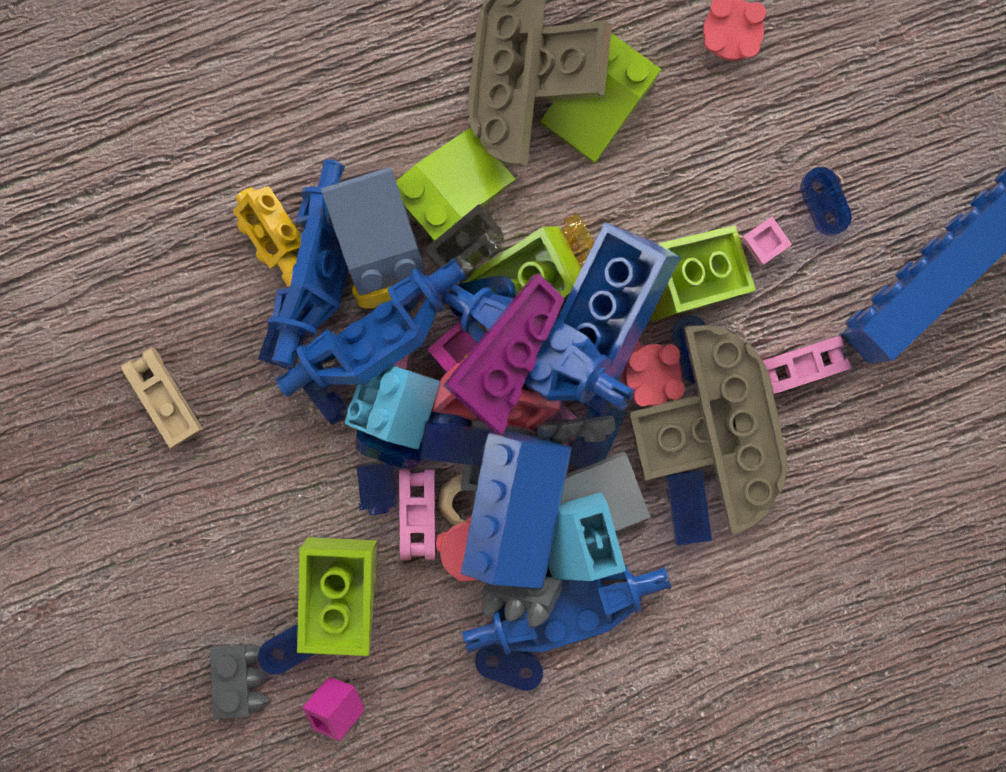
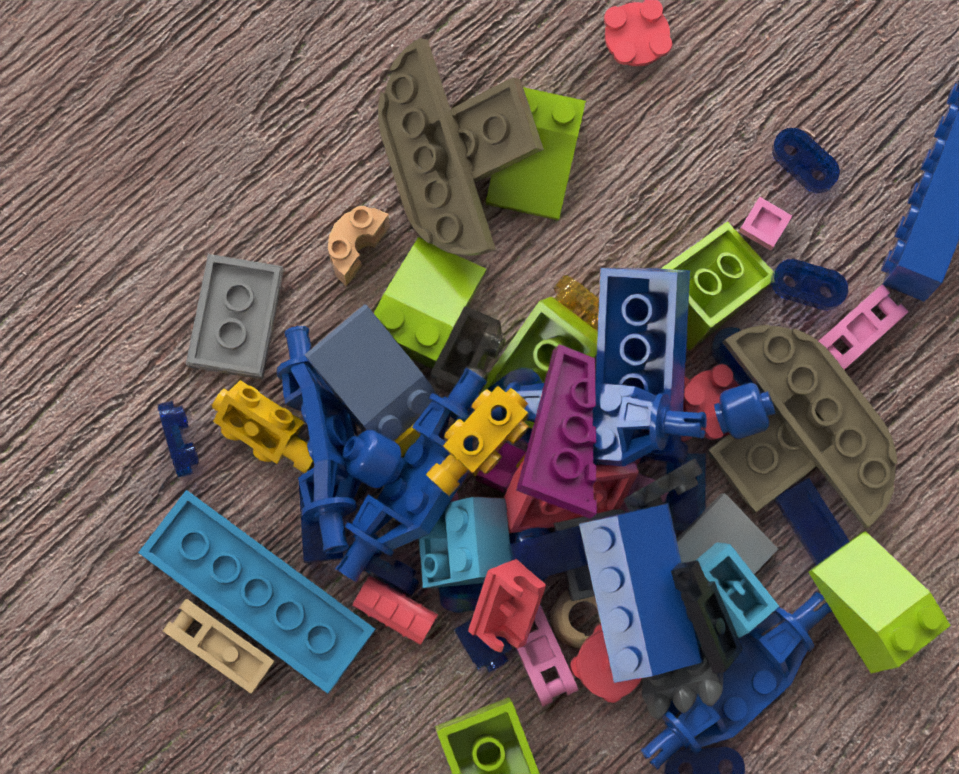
camera: 25 degrees left, 10 degrees down
(196, 223) = (182, 453): none -> clear blue plate
(210, 366) = (257, 591): none -> dark azure plate
(290, 129) = (235, 316): none -> light grey tile
(315, 430) = (395, 610): none -> coral axle
(345, 300) = (373, 459): none -> blue head
(401, 470) = (507, 605): none -> coral hinge
(411, 102) = (352, 232): none -> light nougat cylinder
(441, 323) = (489, 432): none -> yellow brick
(562, 554) = (708, 615): none -> black hinge
(673, 394) = (744, 411): none -> blue head
(710, 601) = (878, 603): none -> lime slope
(778, 307) = (808, 281): none -> clear blue plate

